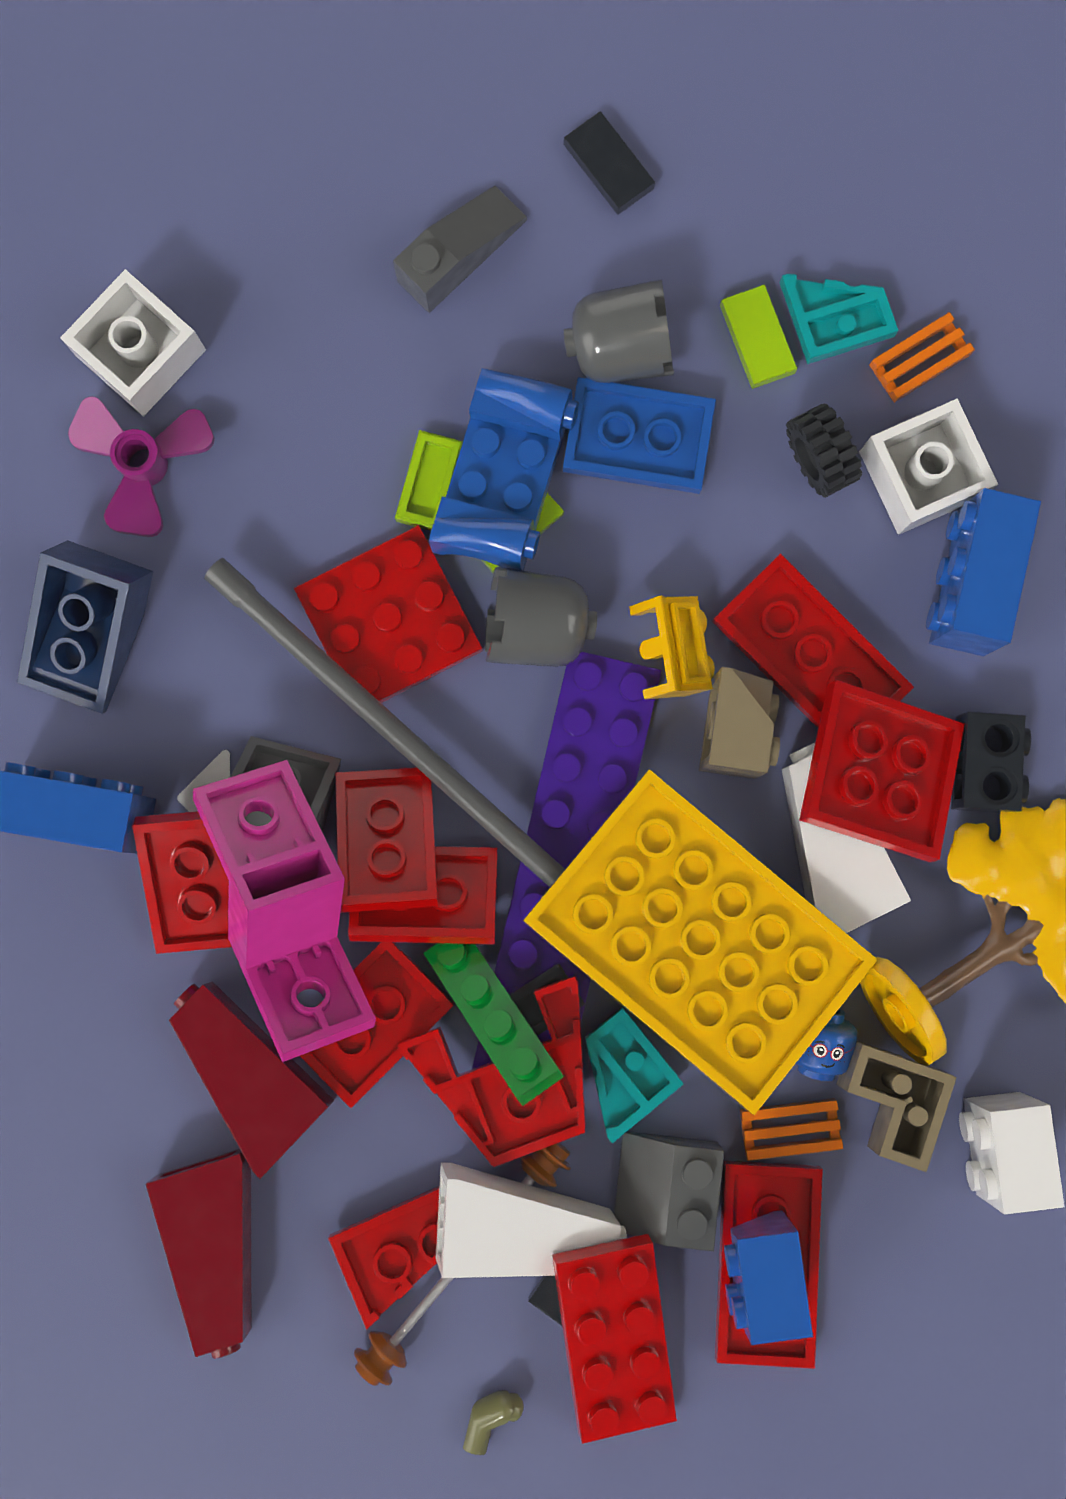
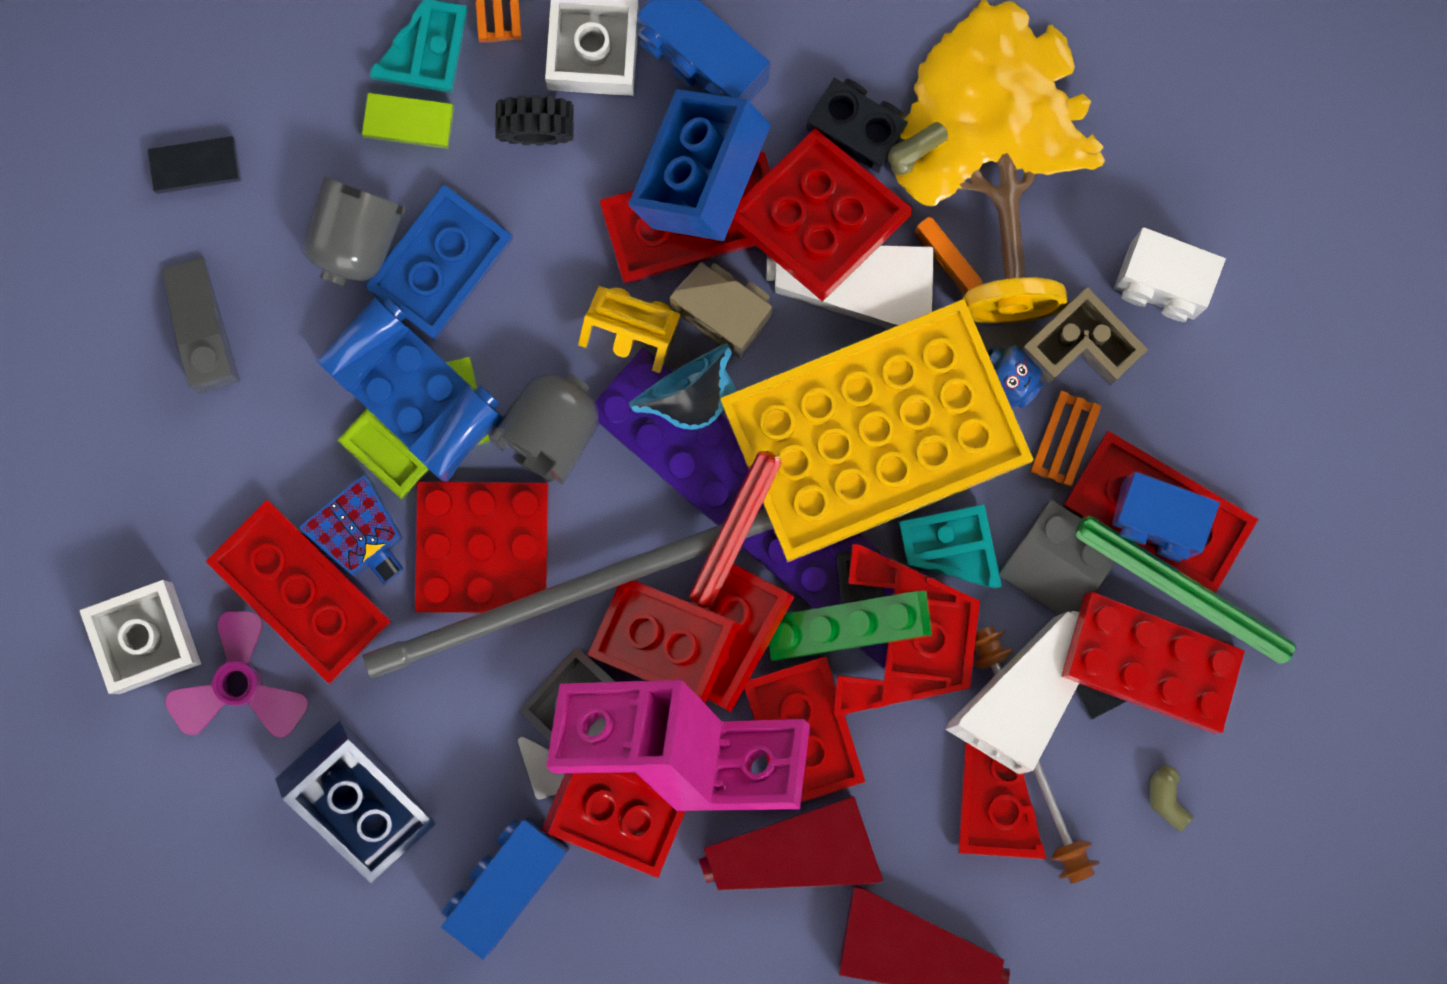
camera: 65 degrees left, 0 degrees up
(256, 469) = (298, 591): none -> red plate
(341, 493) = (357, 531): none -> torso
(530, 851) = (735, 528): none -> axle
(640, 739) = (690, 393): none -> hat
(705, 1333) = (1185, 589): none -> axle
(870, 628) = (699, 164): none -> blue brick
(909, 919) = (947, 255): none -> orange tile
(994, 827) = (908, 151): none -> olive arm

